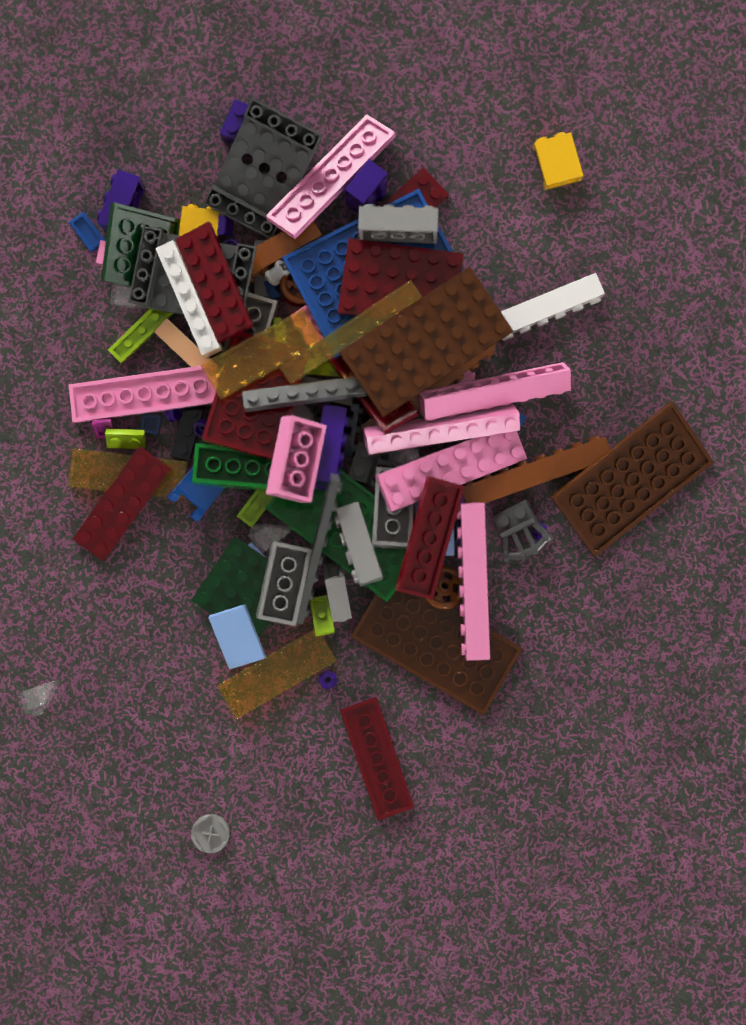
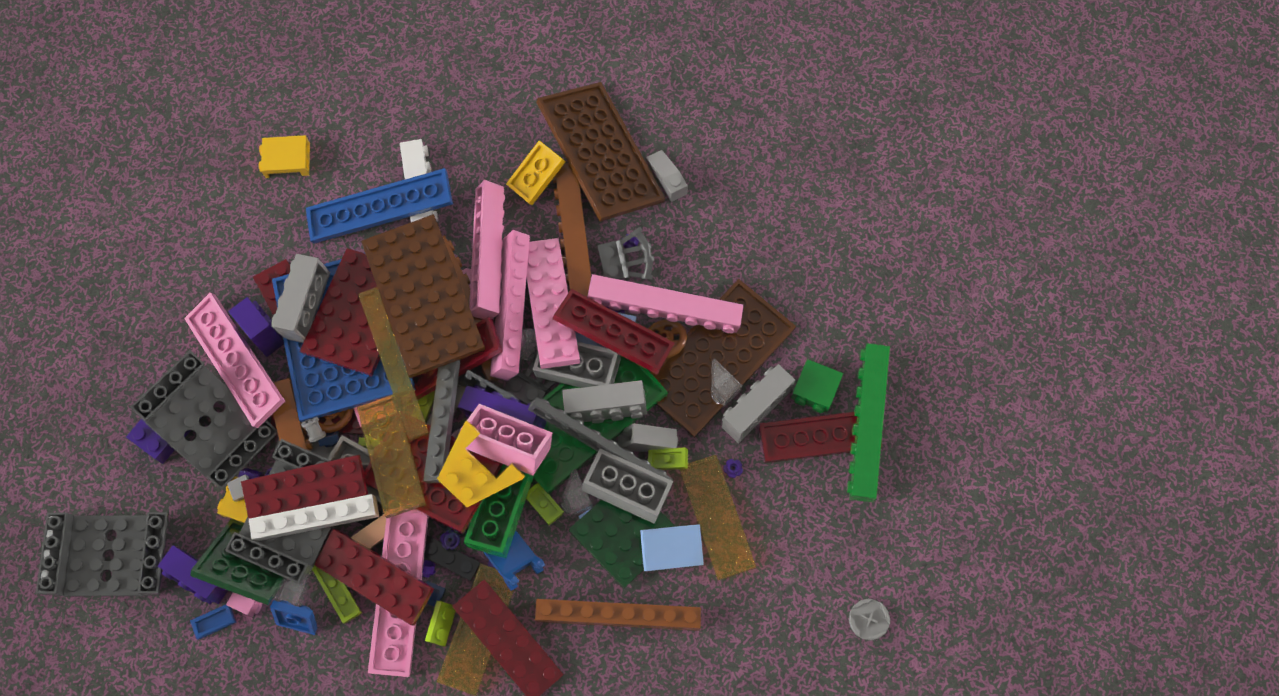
camera: 75 degrees left, 15 degrees down
(101, 425) = (421, 647): magenta plate -> none
(102, 312) = (294, 617): none -> blue plate
(120, 89) = (76, 552): none -> dark grey slope
(150, 368) = (374, 577): none -> dark red plate
(165, 600) = (618, 614): none -> dark orange brick
(208, 216) = (236, 488): none -> light grey tile
(250, 433) = (467, 476): none -> yellow wing
(393, 692) = (757, 403): none -> light grey brick
(397, 804) = (869, 423): none -> green brick
(405, 654) = (723, 384): none -> clear slope
(424, 746) = (816, 386): none -> green brick
(521, 271) = (379, 206): none -> blue plate
(592, 419) = (535, 172): none -> yellow plate
(622, 553) = (668, 175): none -> light grey slope

